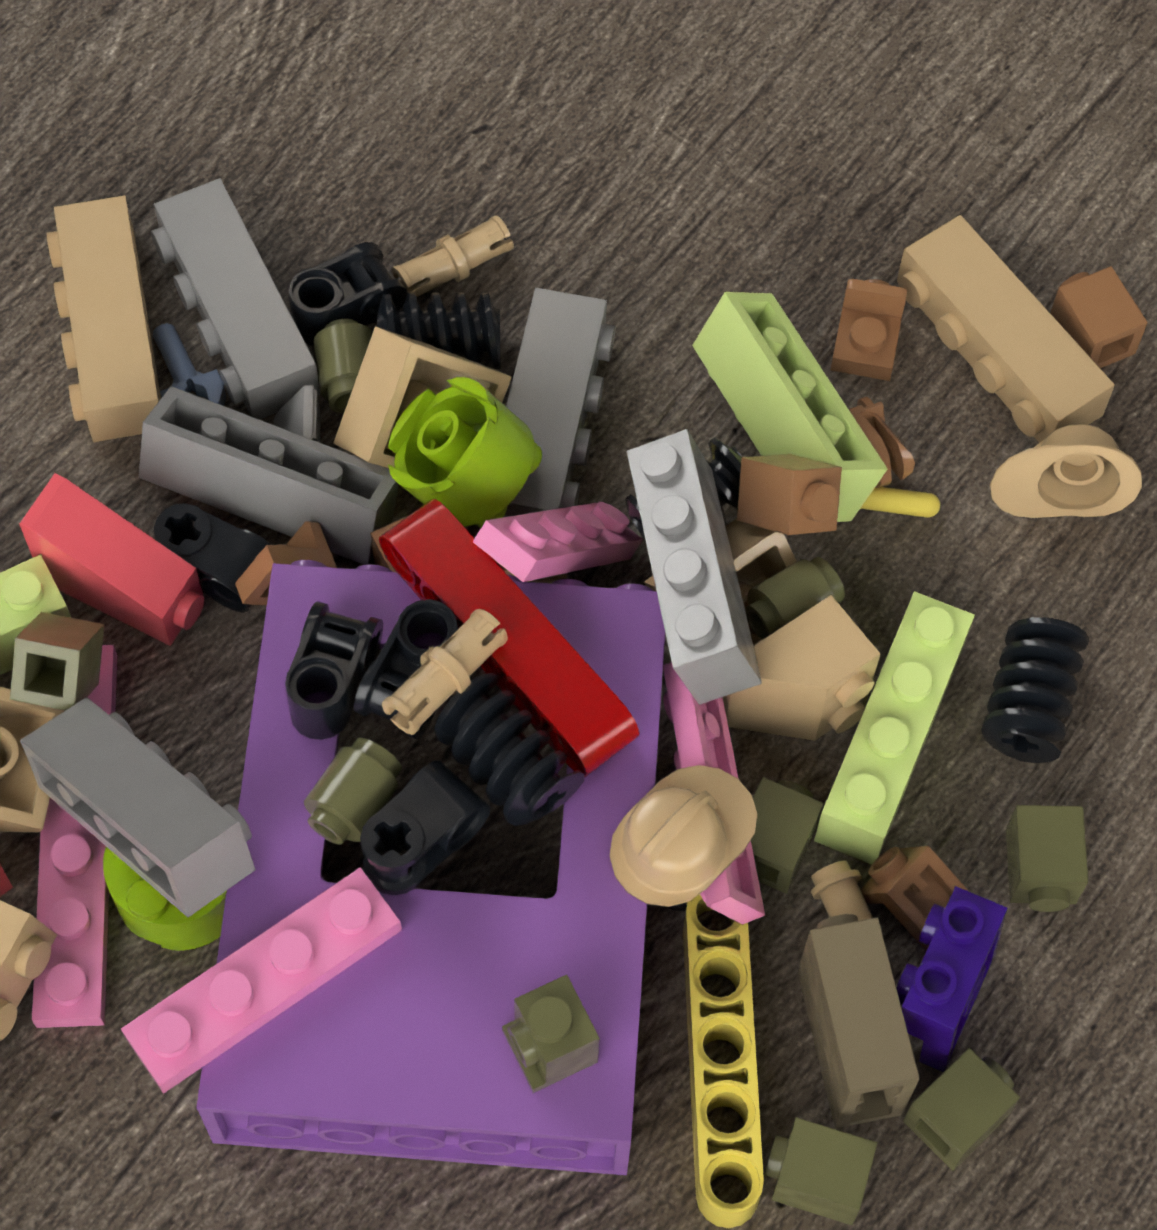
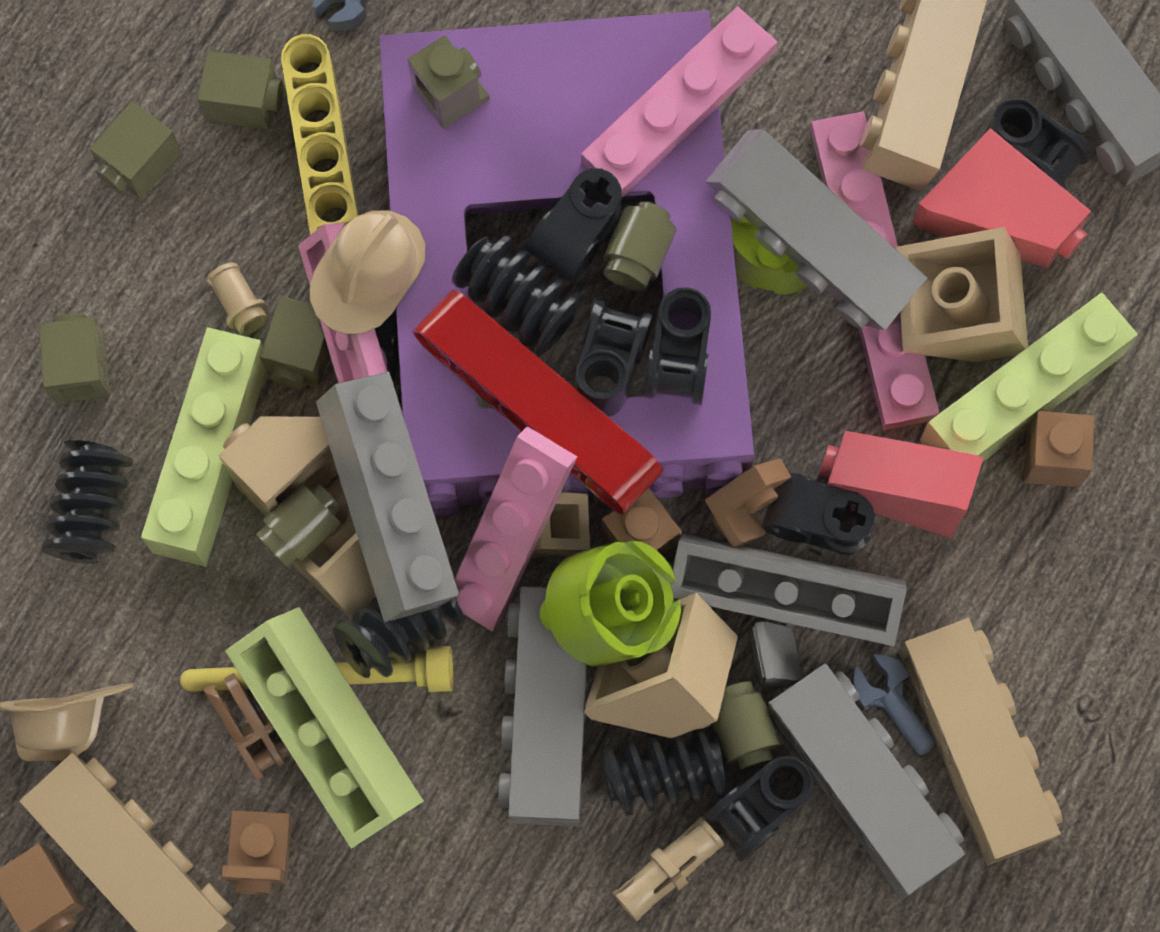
camera: 175 degrees right, 10 degrees up
(56, 661) = (919, 364): brick -> none
(444, 671) = (577, 324): tan pin -> none
(789, 494) = (311, 604): medium nougat brick -> none
(856, 1021) = (219, 183): dark tan brick -> none
(910, 884) = (178, 312): medium nougat bracket -> none
(947, 982) = (143, 223): dark purple plate -> none

